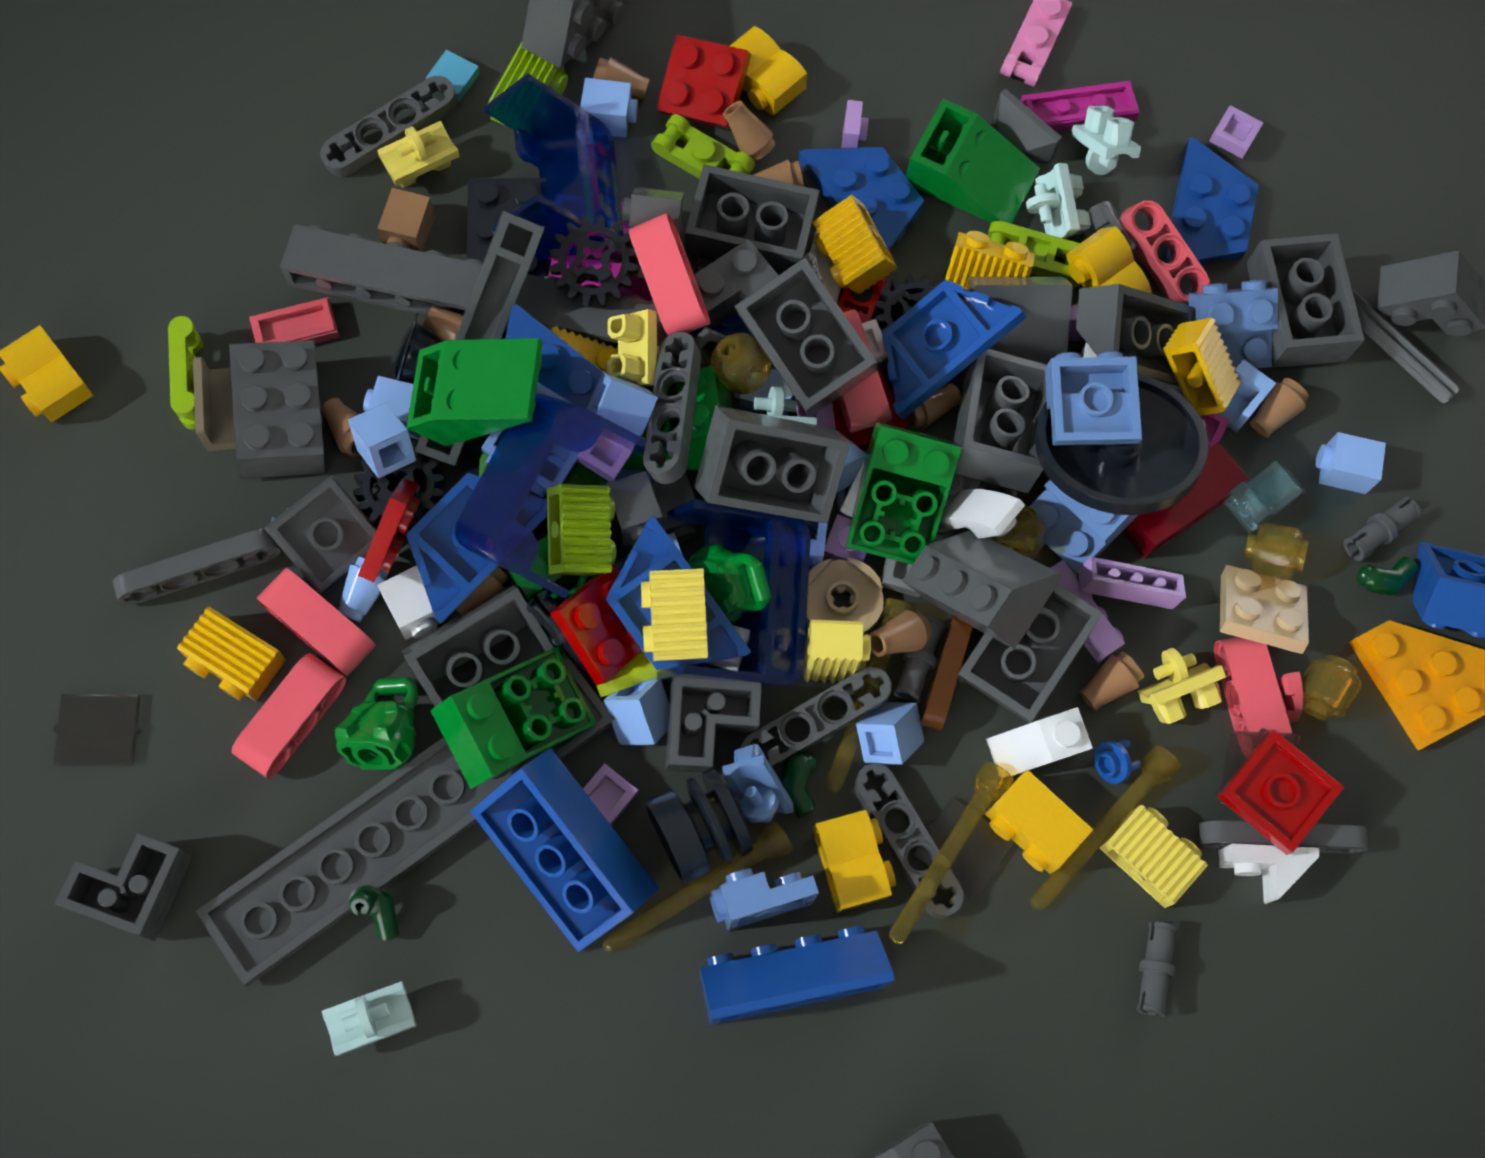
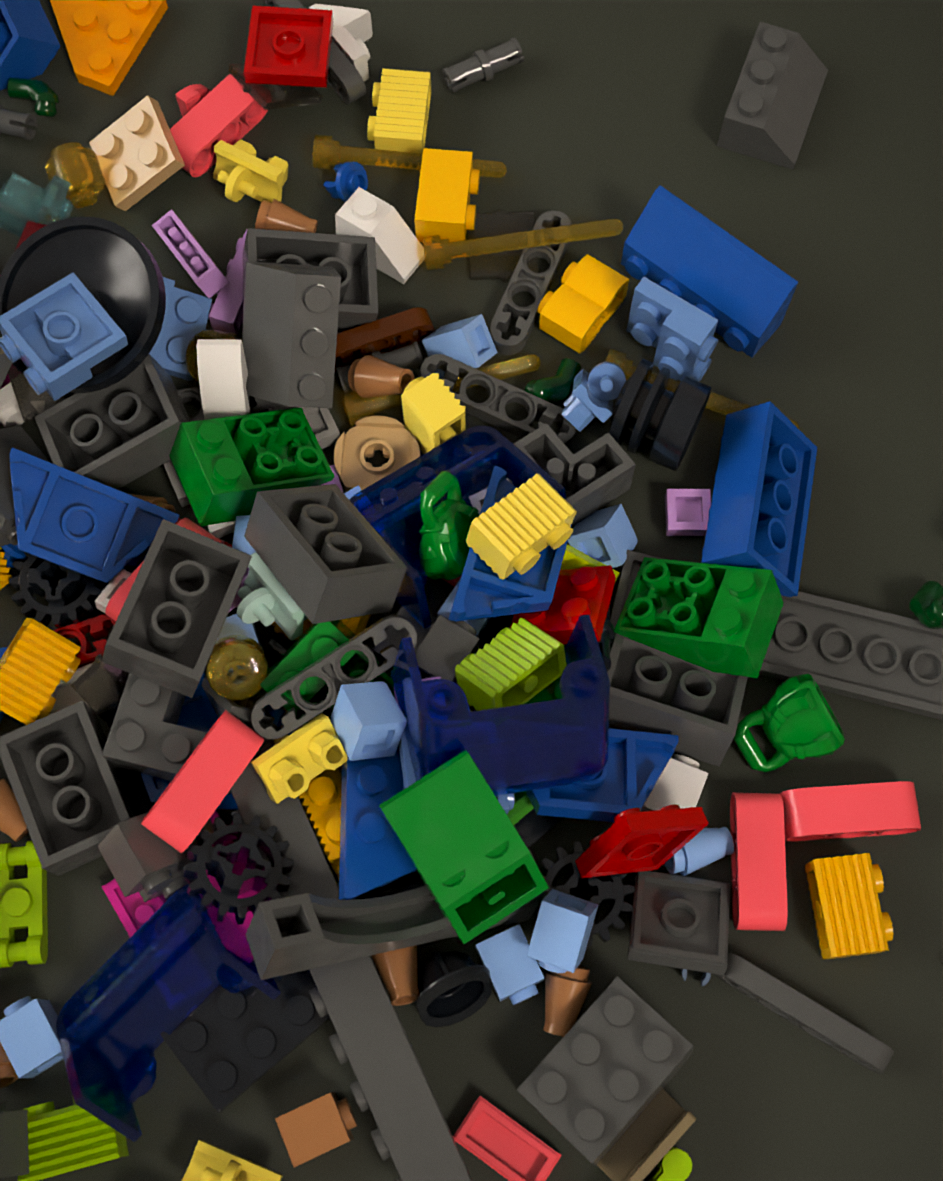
camera: 120 degrees left, 0 degrees up
(1330, 687) = (166, 74): clear yellow head -> none

